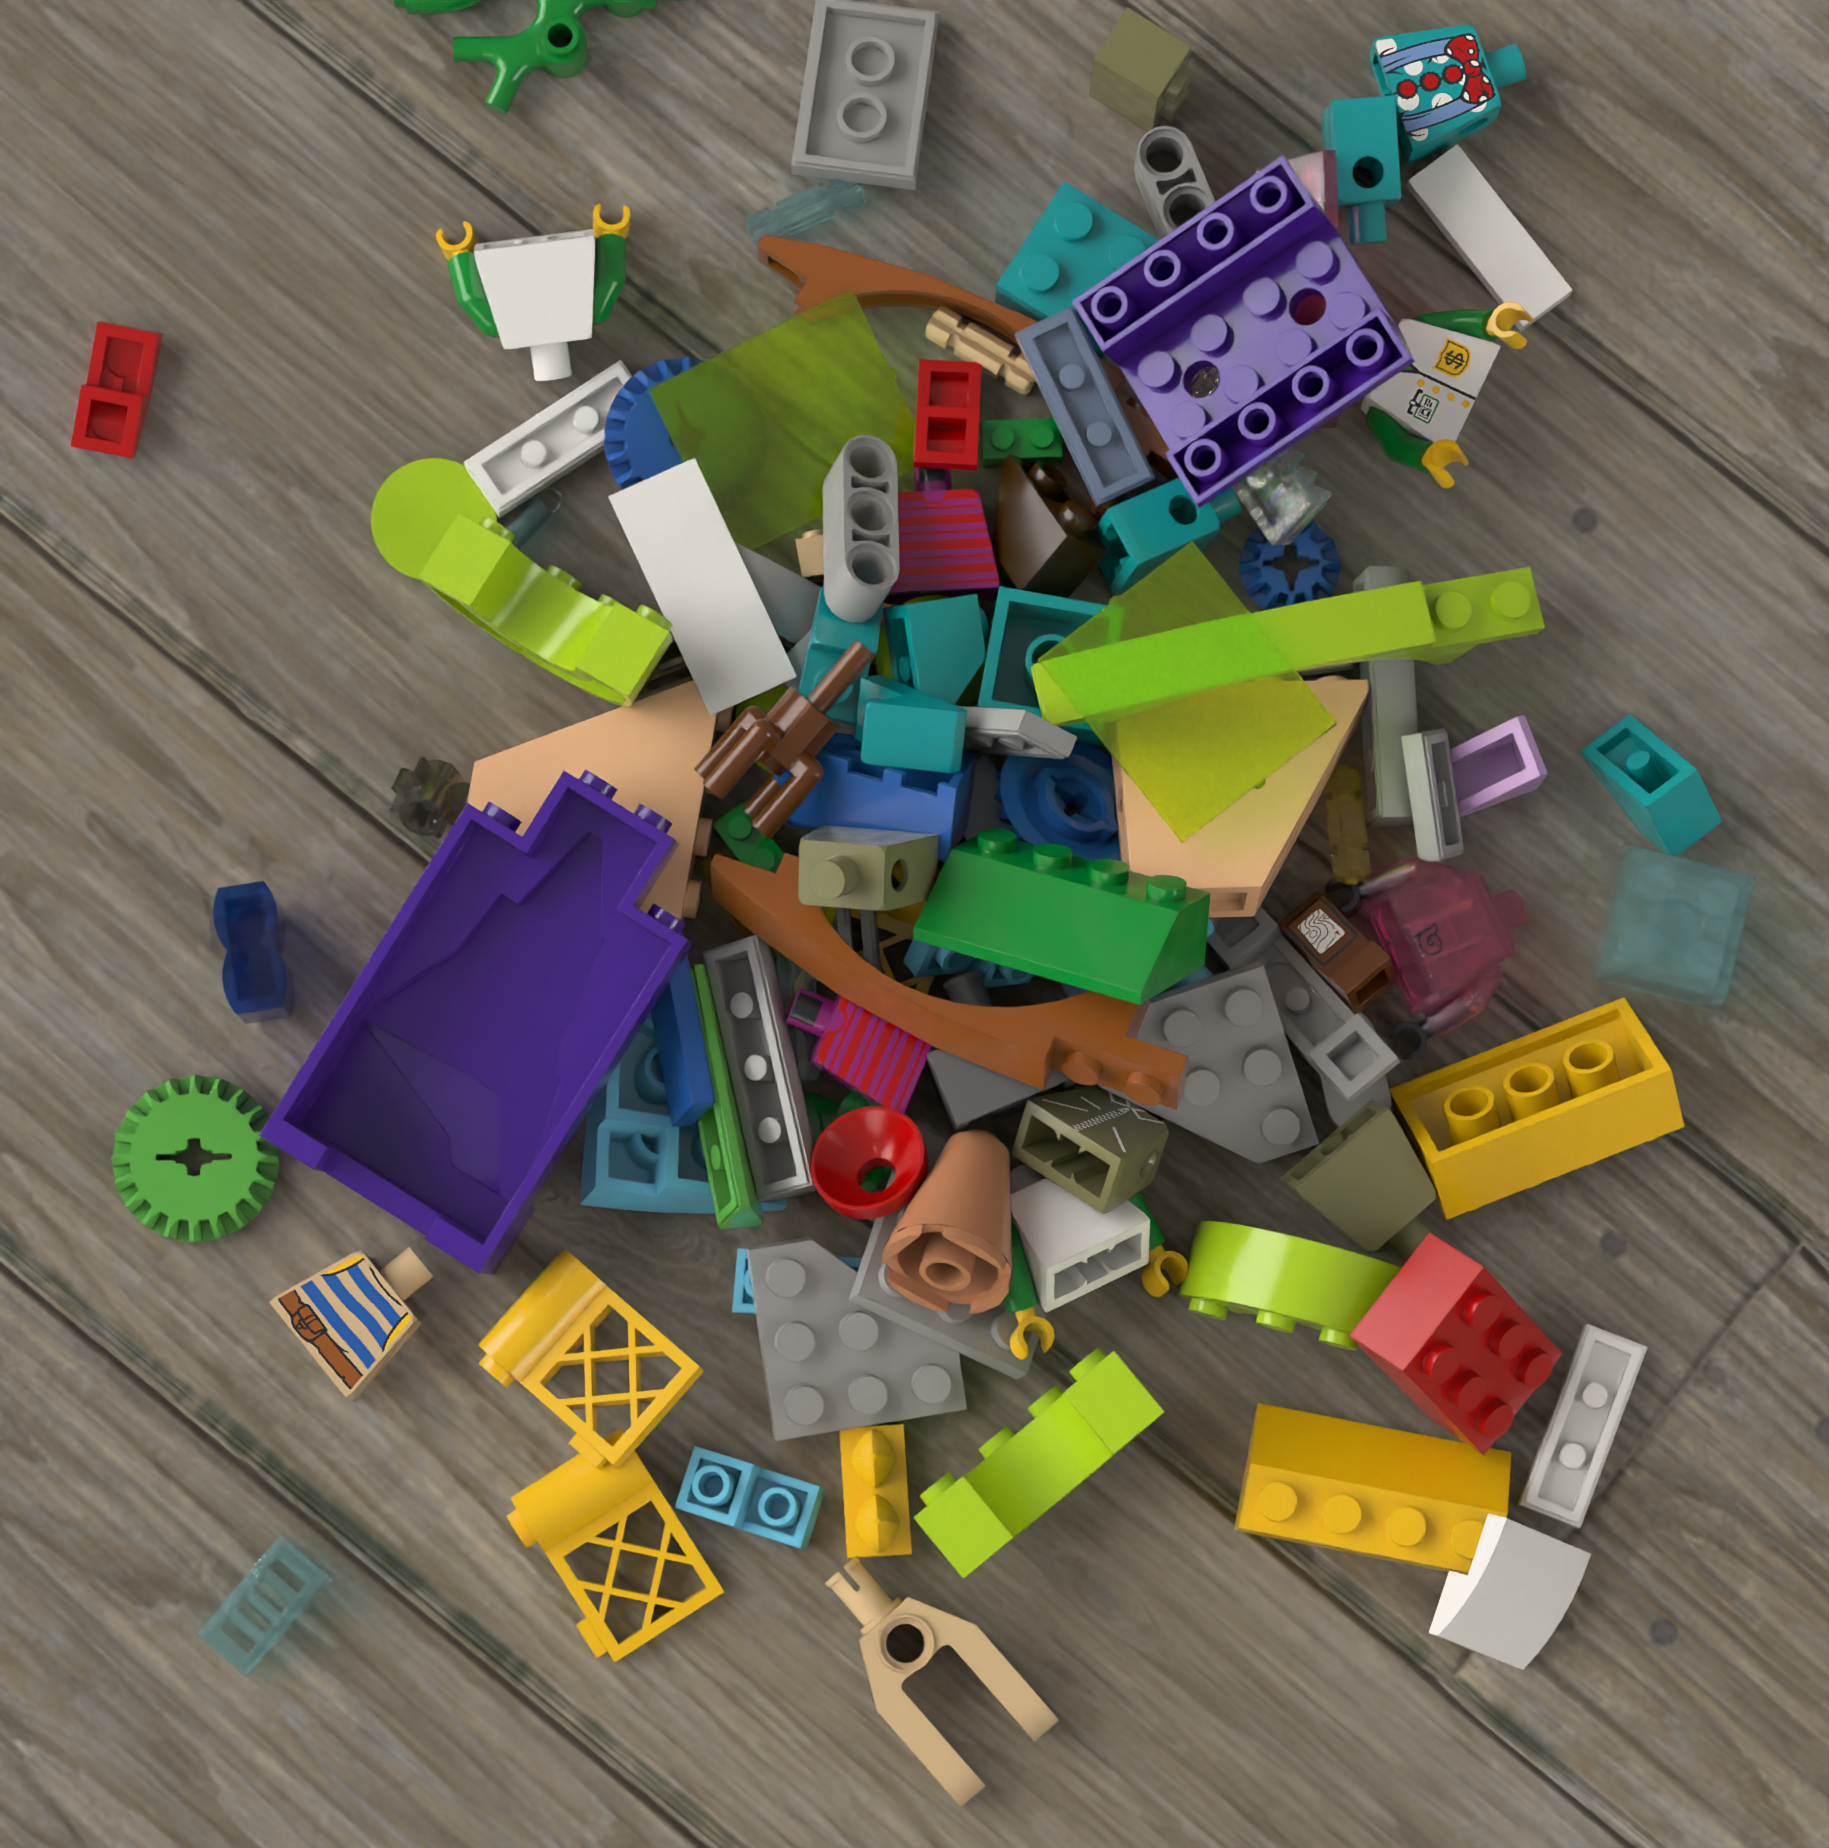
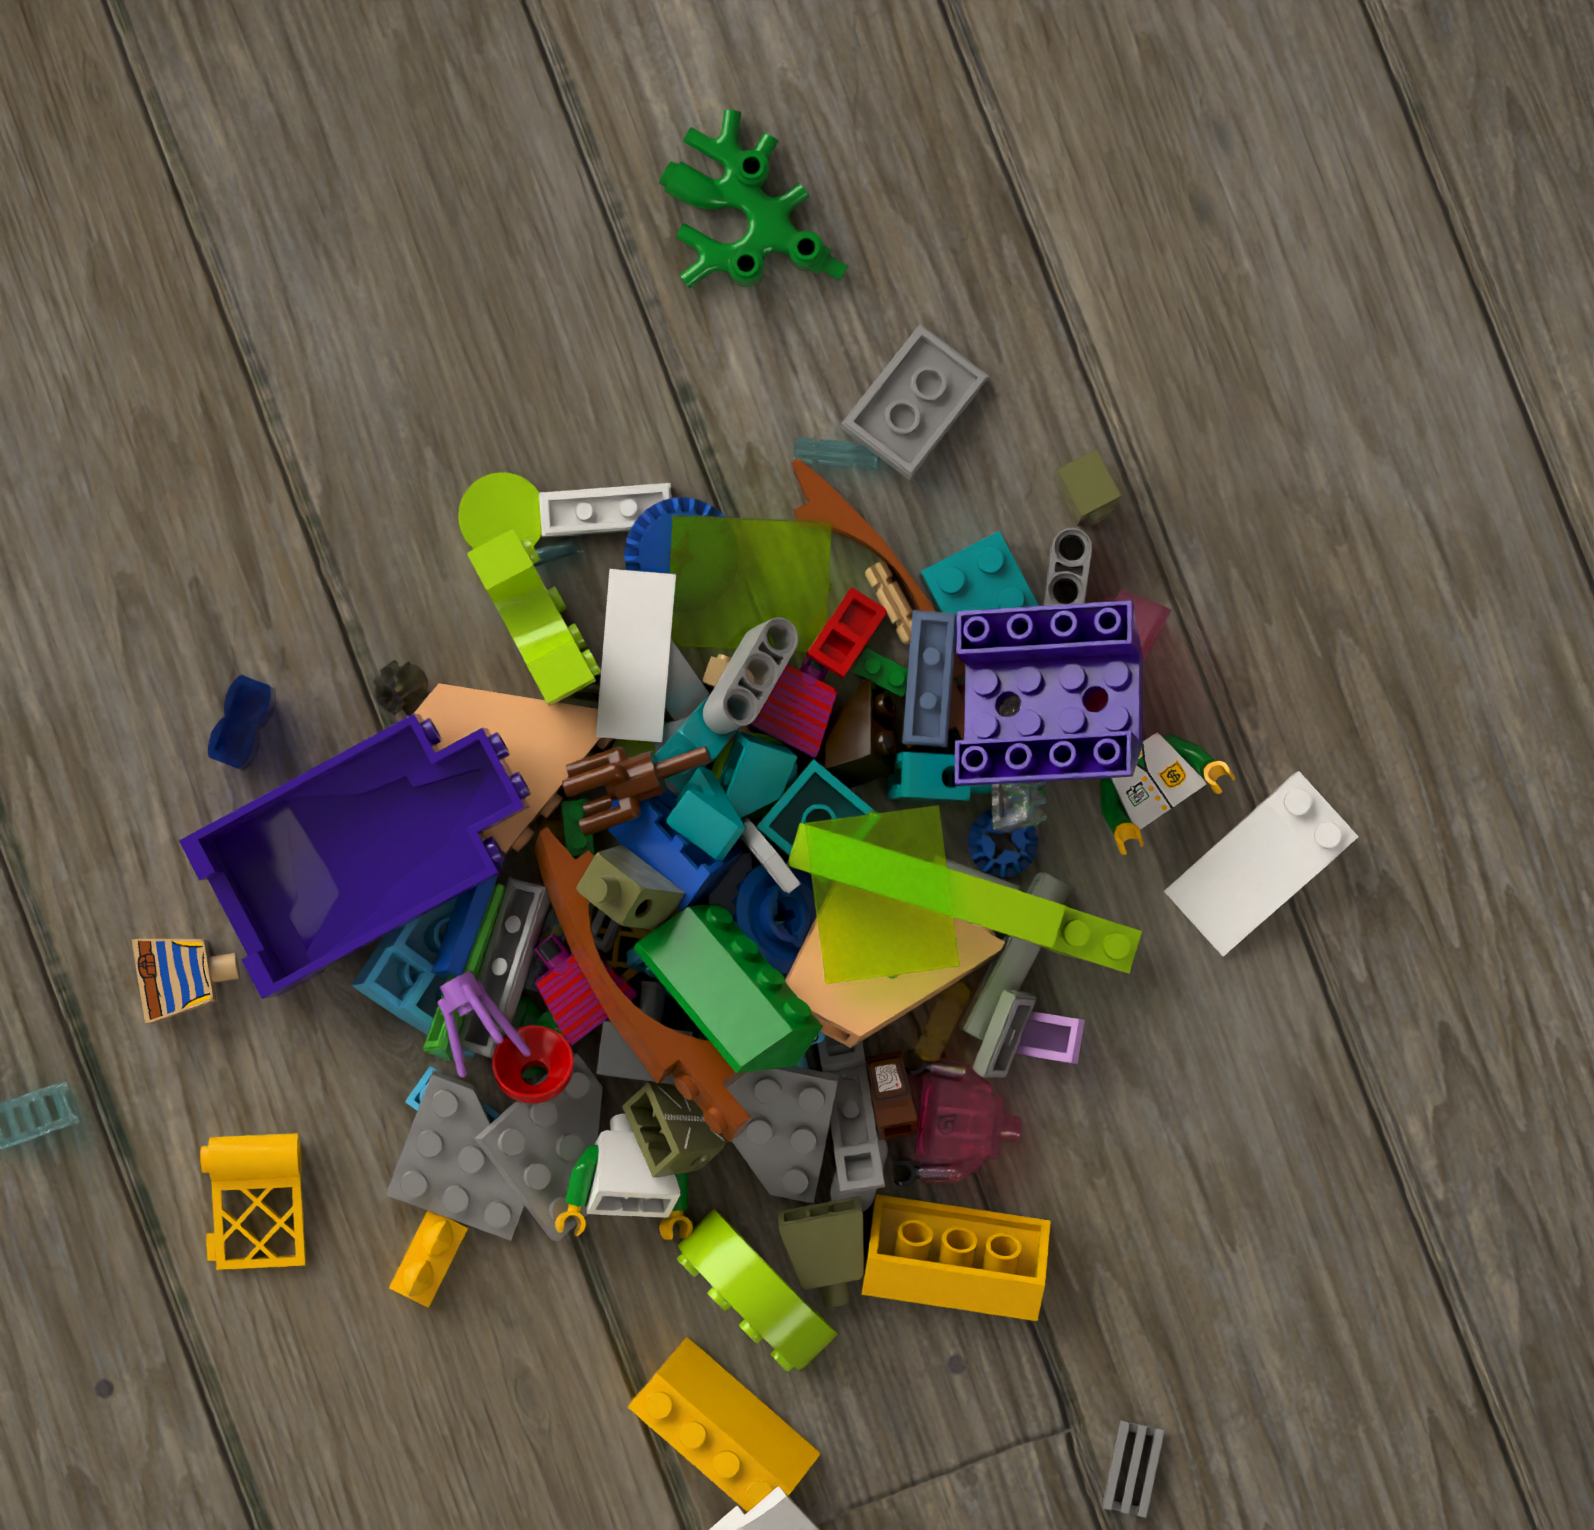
camera: 30 degrees right, 5 degrees up
(117, 389) = (356, 326): red slope -> none
(226, 1191) = (109, 836): bright green gear -> none
(541, 287) = (645, 412): white torso -> none
(548, 1328) = (289, 1049): yellow piece -> none
(737, 1120) = (465, 996): none -> medium lavender plant
(750, 1498) = (352, 1218): medium azure slope -> none
(879, 1616) = (417, 1362): tan piece -> none
(957, 1229) = (562, 1133): nougat cone -> none
(1040, 1464) = (529, 1299): lime brick -> none
(1366, 138) = (1199, 605): teal torso -> none
(1442, 85) = (1269, 599): torso -> none
(1456, 1343) = (818, 1375): red brick -> none
(1488, 235) = (1244, 709): white tile -> none
(1582, 1426) = (872, 1462): white tile -> none
(1622, 408) = (1261, 863): none -> white slope
(1652, 785) = (1141, 1103): teal slope -> none
(1673, 927) = (1102, 1197): clear light blue brick -> none

